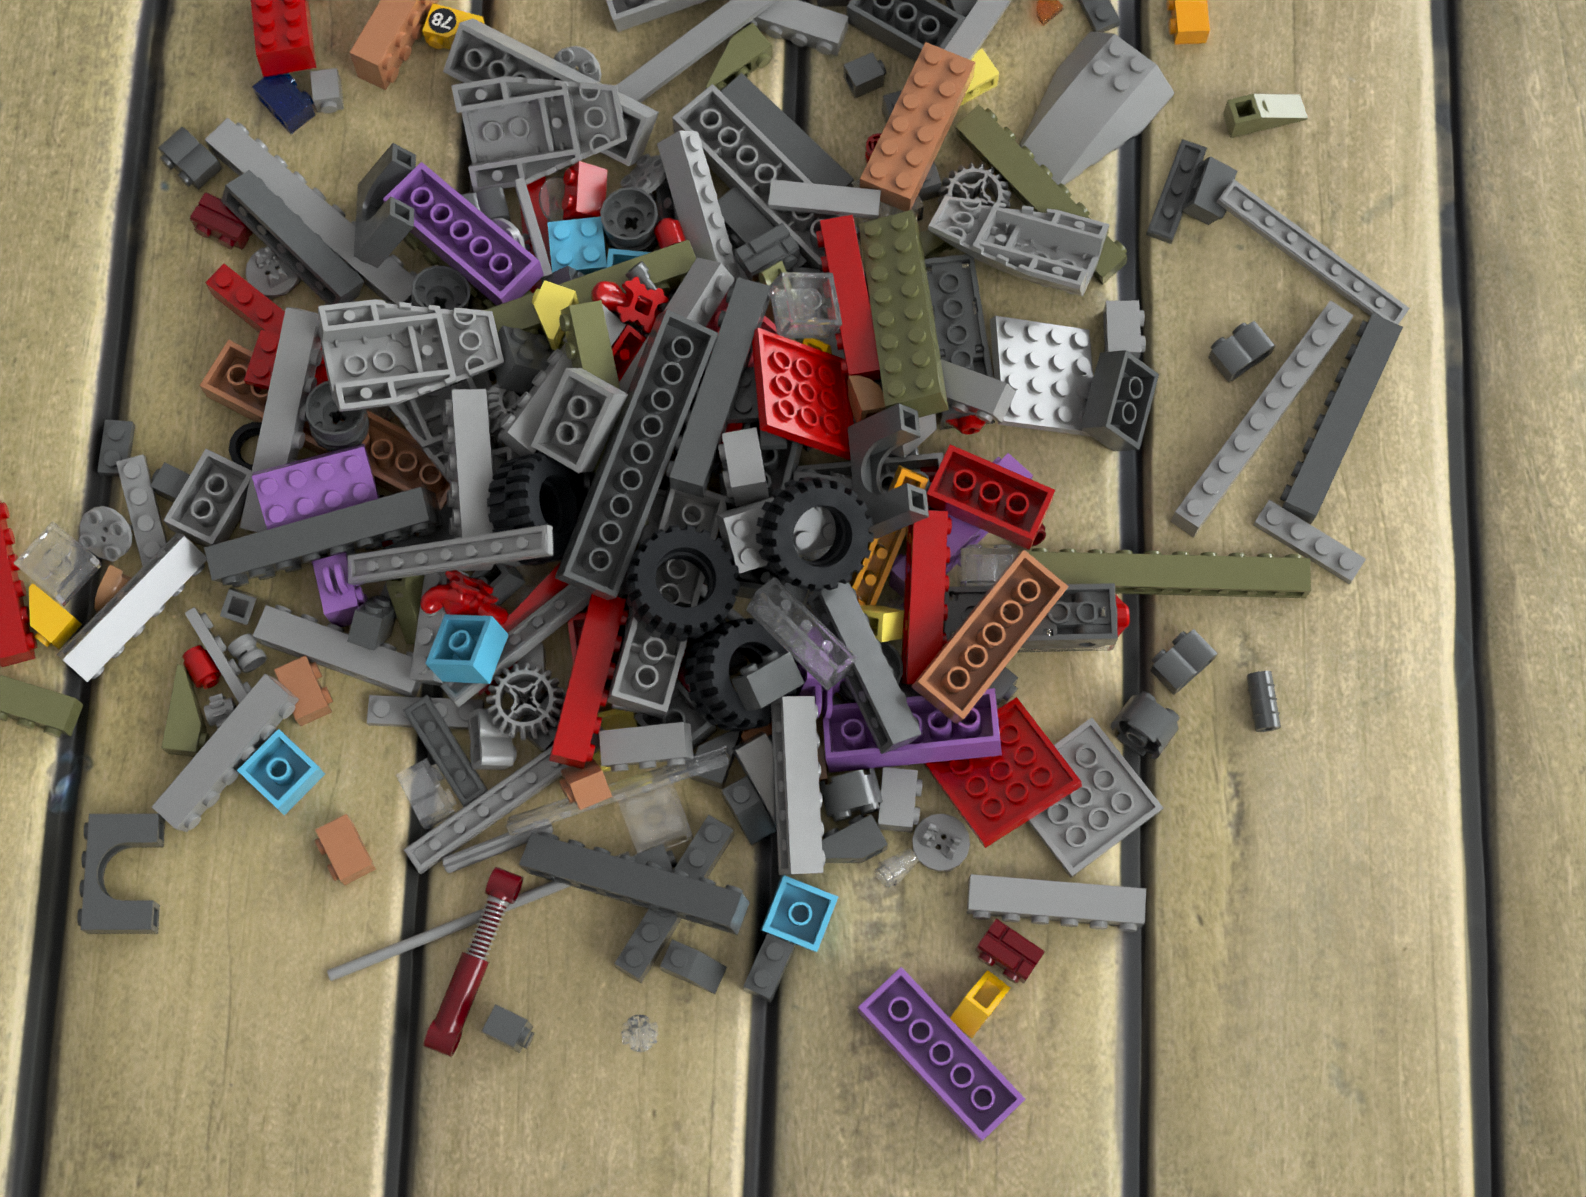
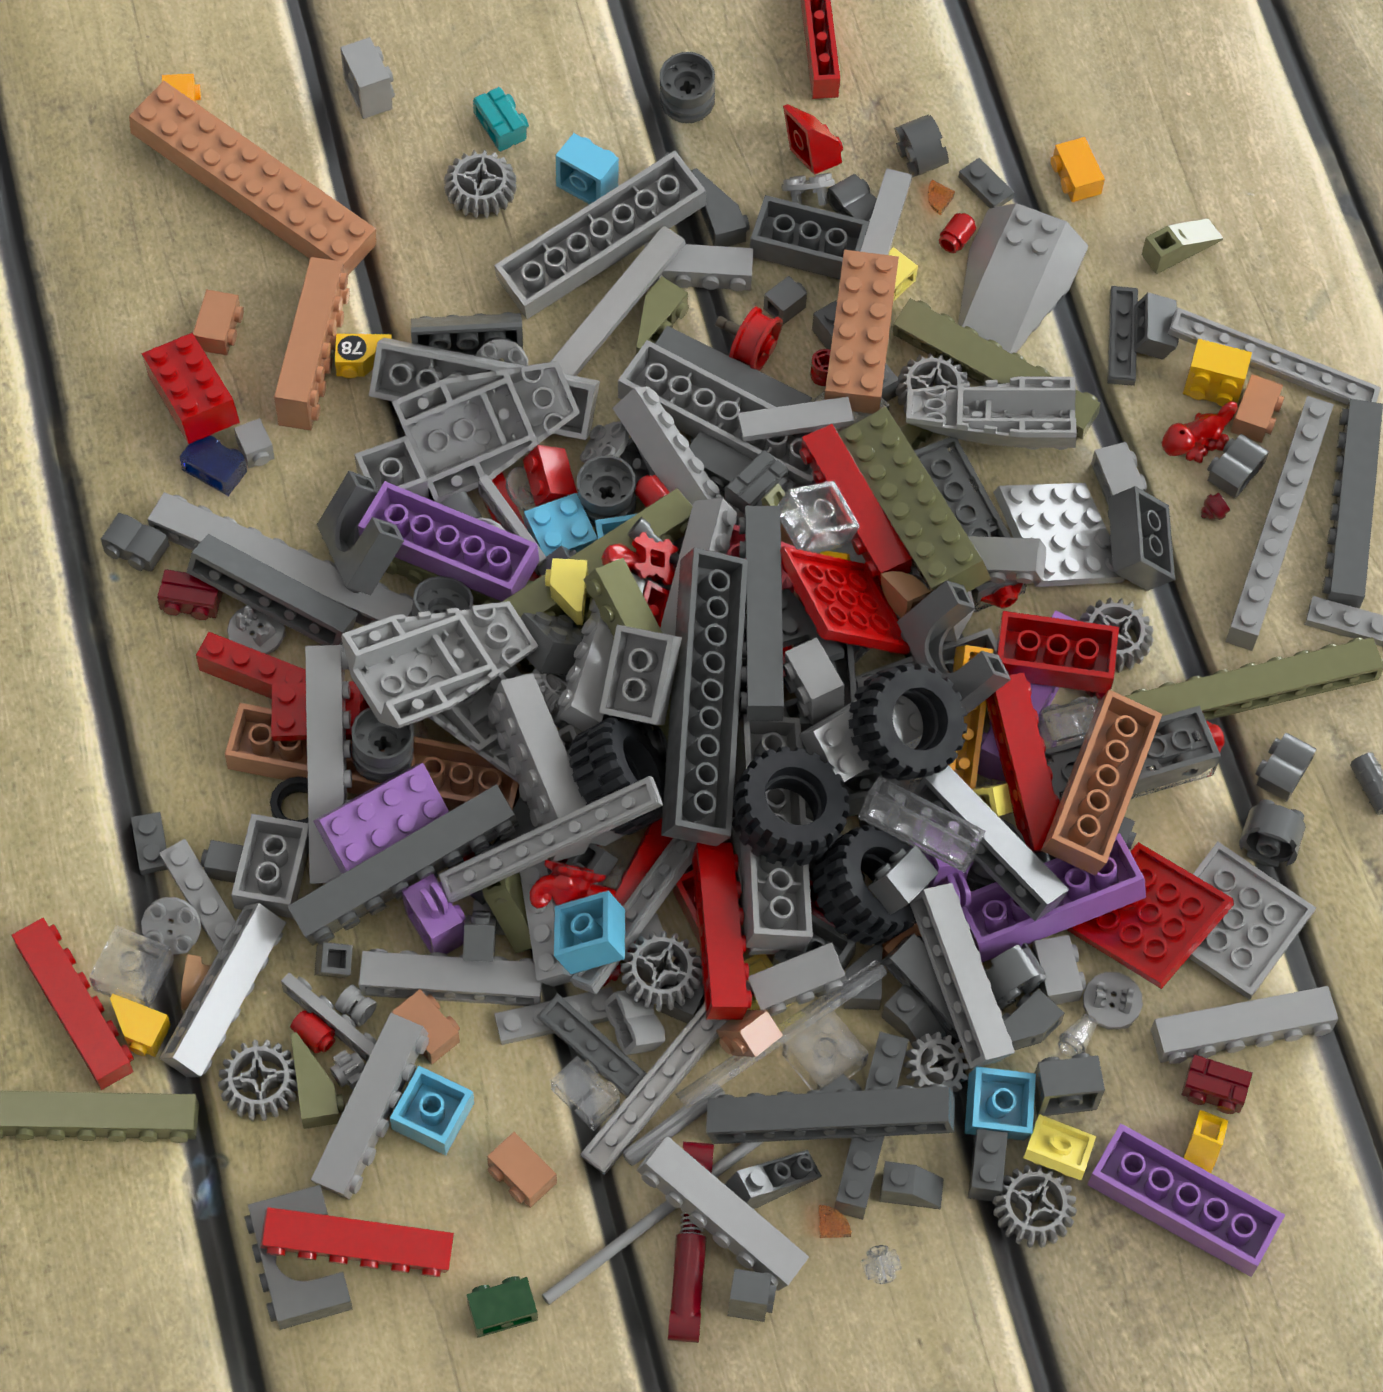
camera: 20 degrees left, 10 degrees down
(116, 693) = (247, 1080): none -> light grey gear
(171, 875) = (357, 1241): none -> red brick
(286, 971) = (502, 1306): none -> dark green brick
(443, 150) = (395, 464): none -> light grey brick
(505, 946) = (721, 1213): none -> light grey brick
(552, 32) = (466, 333): none -> dark grey slope
(566, 924) = (773, 1178): none -> dark grey slope
(610, 980) = (832, 1223): none -> clear orange tile
(752, 848) = (936, 1050): none -> light grey gear
(817, 999) = (1045, 1212): none -> light grey gear
(818, 106) = (754, 338): none -> red wheel
(840, 970) = (1059, 1147): none -> light yellow plate
(866, 914) = (1068, 1085): none -> dark grey brick
(1051, 48) = (957, 232): none -> red brick
(1082, 476) = (1125, 618): none -> light grey gear
(1205, 386) = (1214, 507): none -> dark red plate
(1214, 312) = (1200, 435): none -> red animal
(1250, 254) = (1217, 372): none -> yellow brick
(1280, 298) = (1257, 407): none -> nougat brick

